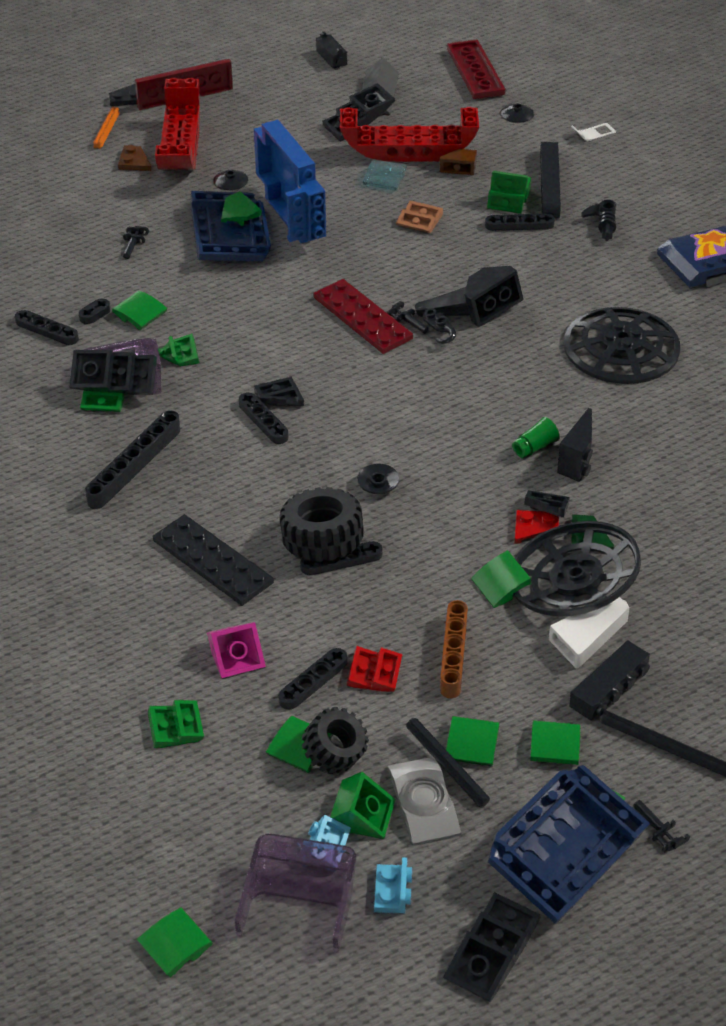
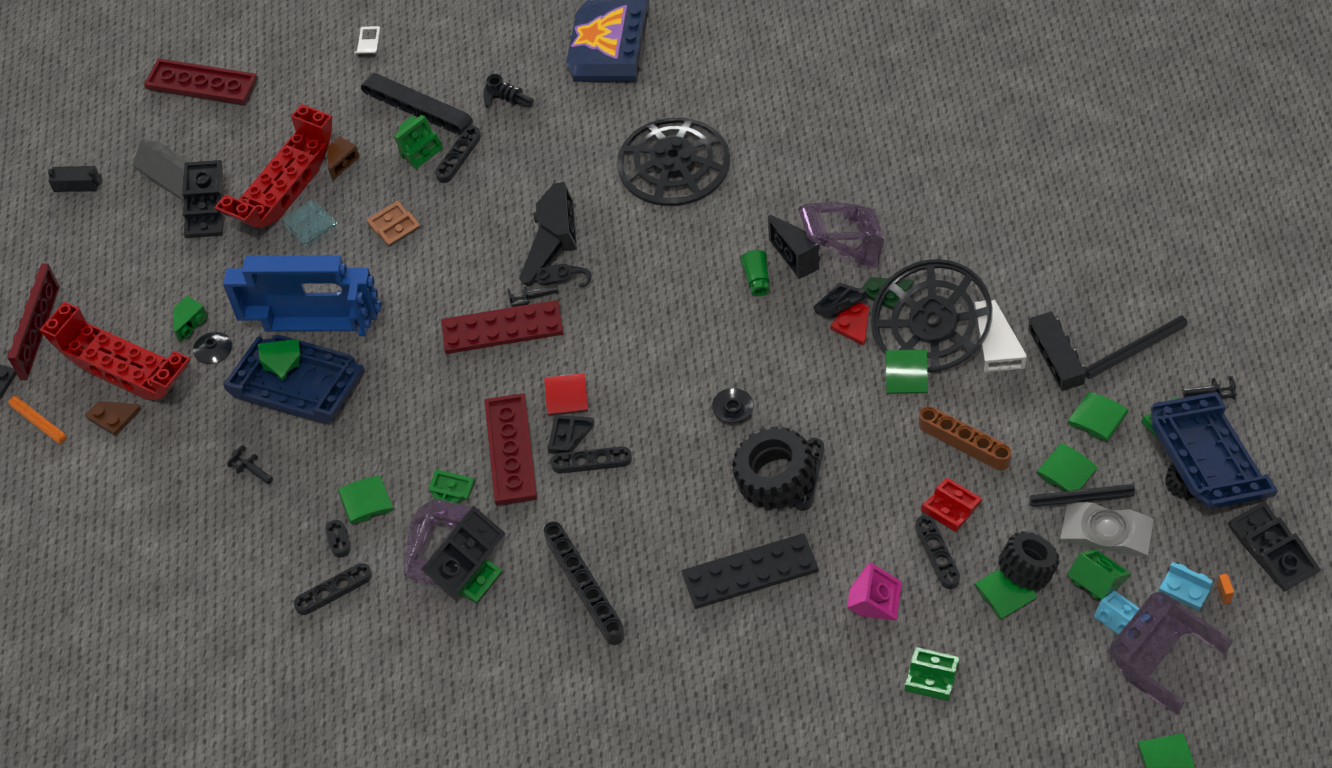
camera: 55 degrees left, 10 degrees up
(240, 153) = (187, 317): none -> green slope
(240, 367) = (510, 449): none -> dark red plate
(319, 376) = (566, 394): none -> red slope
(408, 919) = (1225, 588): none -> orange tile
(517, 113) = (292, 83): black dish -> none
(634, 492) = (868, 251): none -> clear purple windscreen

